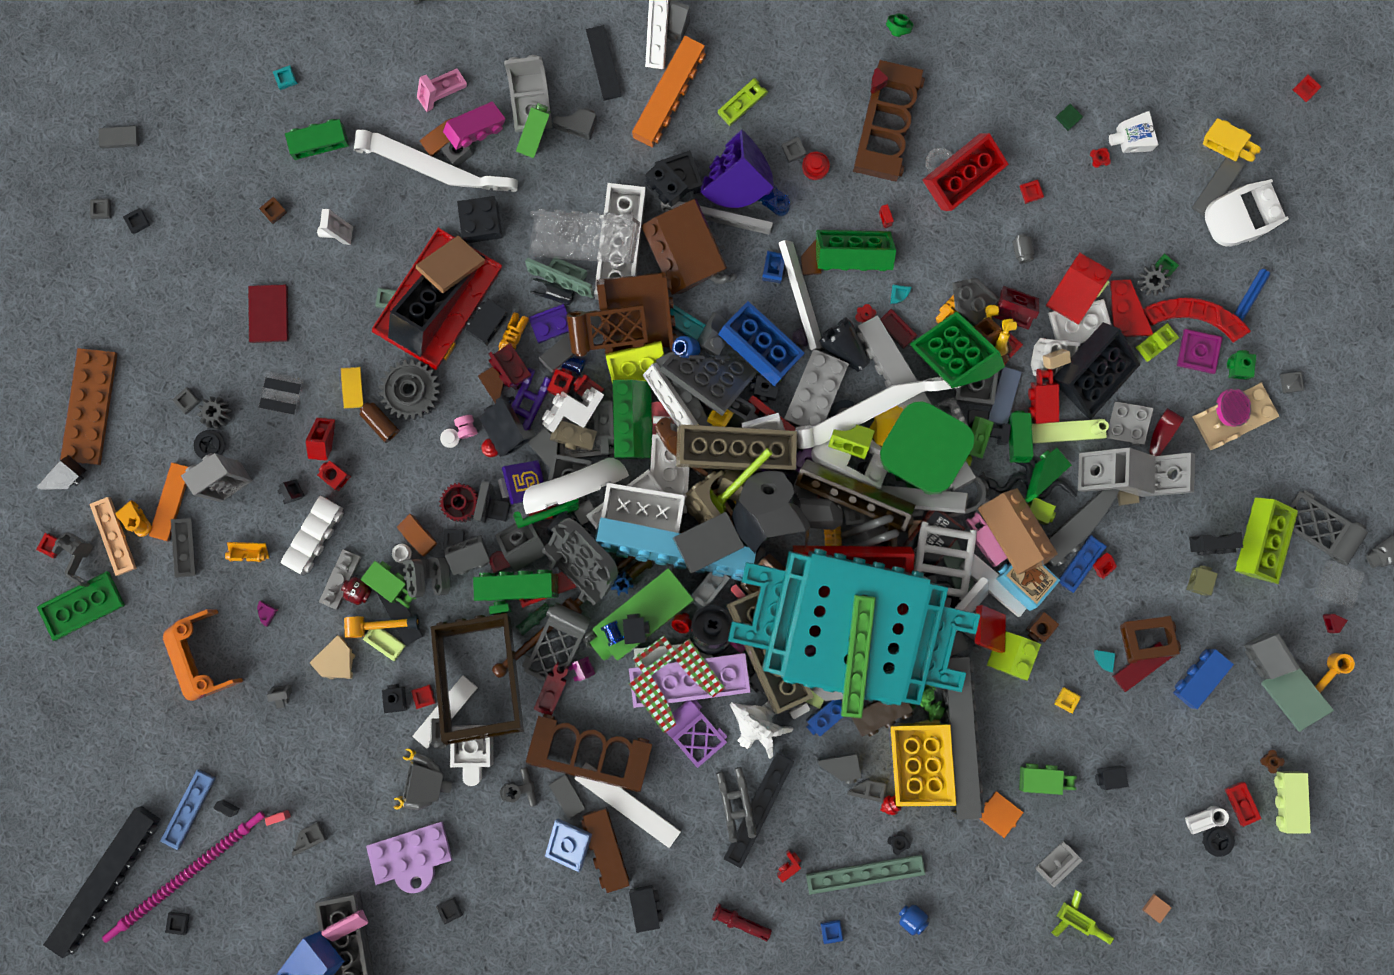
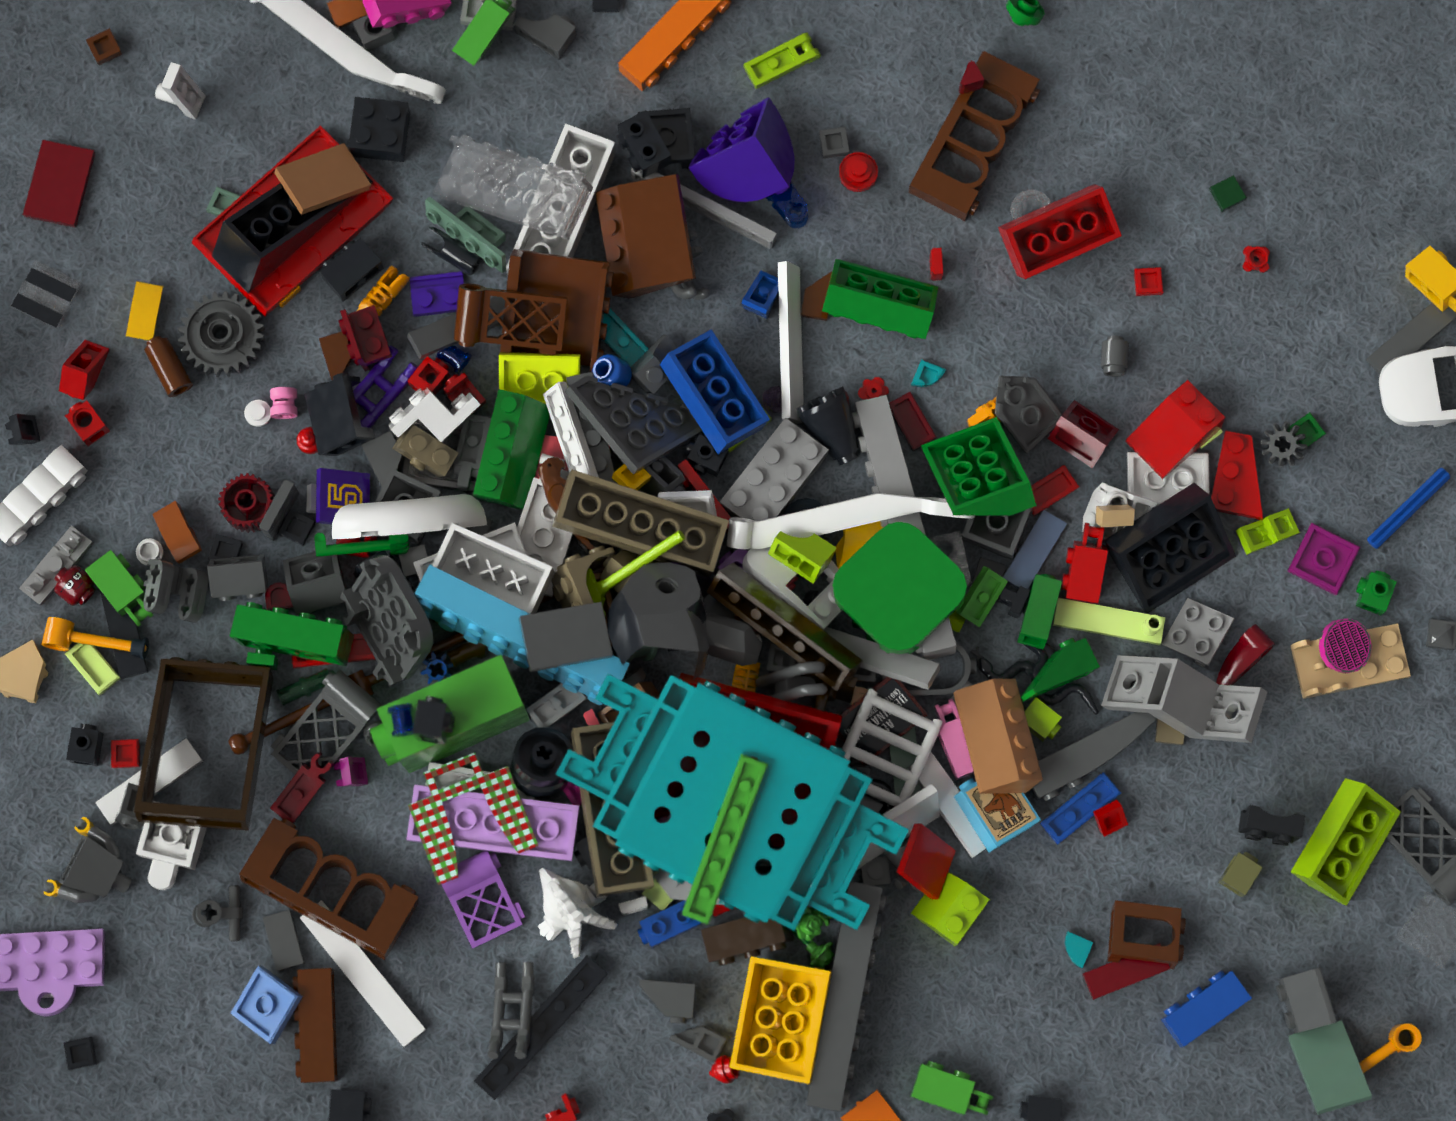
camera: 15 degrees right, 5 degrees down
(681, 623) = (504, 744): red tile -> none
(994, 332) = (1038, 464): torso -> none
(1049, 624) = (1010, 874): reddish brown brick -> none
(1067, 700) = (1010, 990): yellow tile -> none
(1135, 134) = (1311, 239): white torso -> none
(1198, 309) = (1336, 501): red tile -> none
(1334, 623) = (1410, 979): dark red slope -> none

